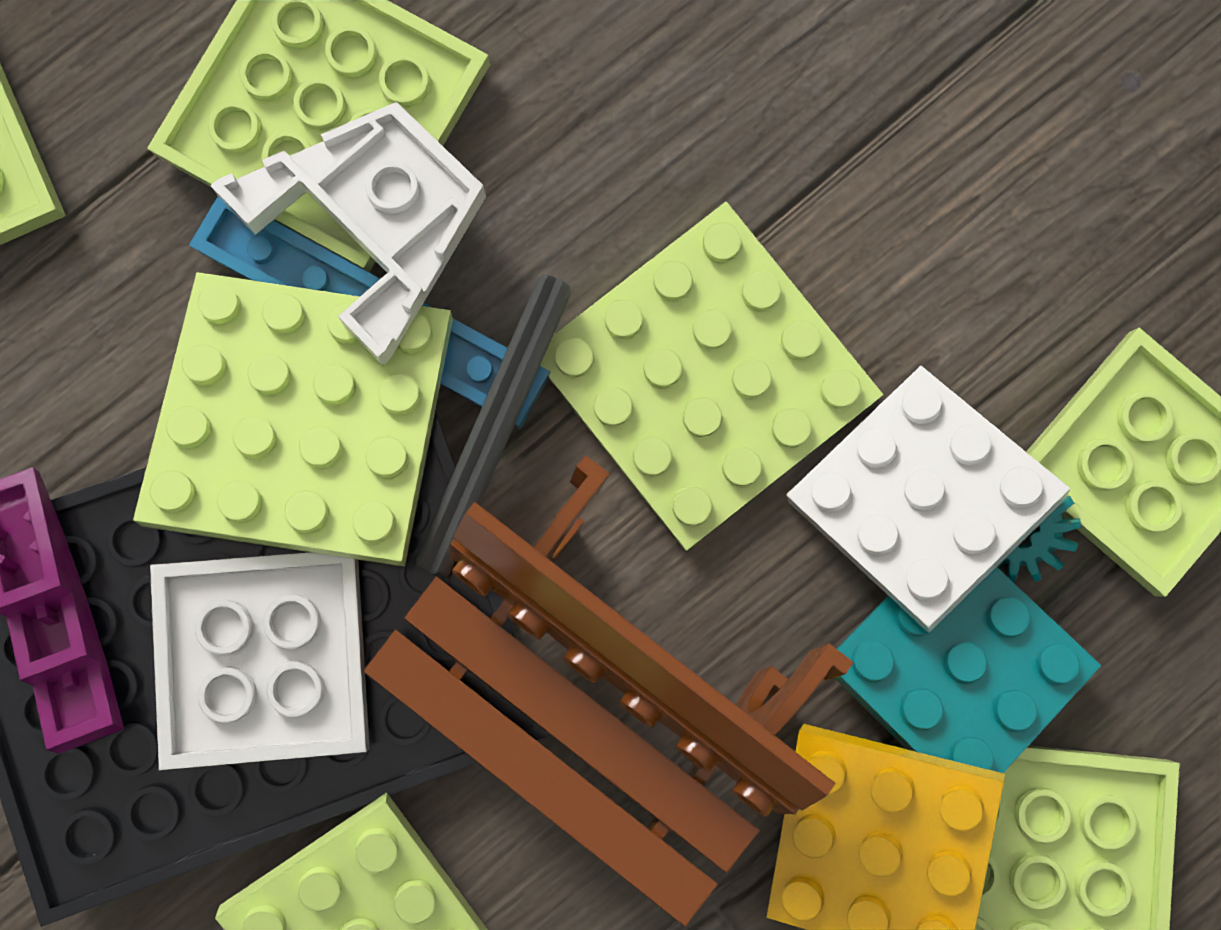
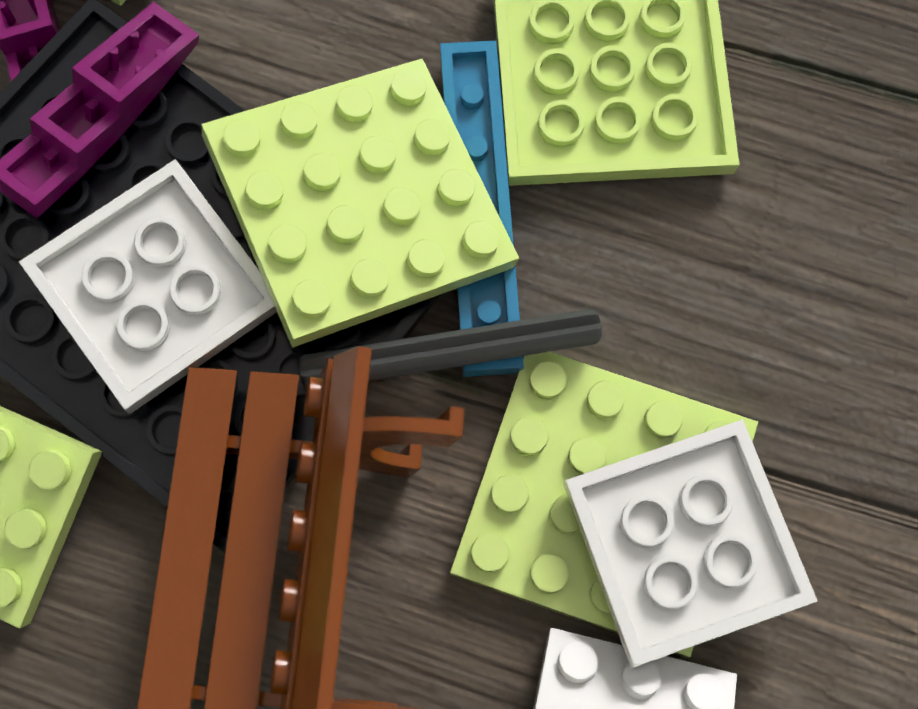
camera: 55 degrees right, 10 degrees down
(390, 193) = (578, 159): white wing -> none
(794, 333) = (688, 543): none -> white plate

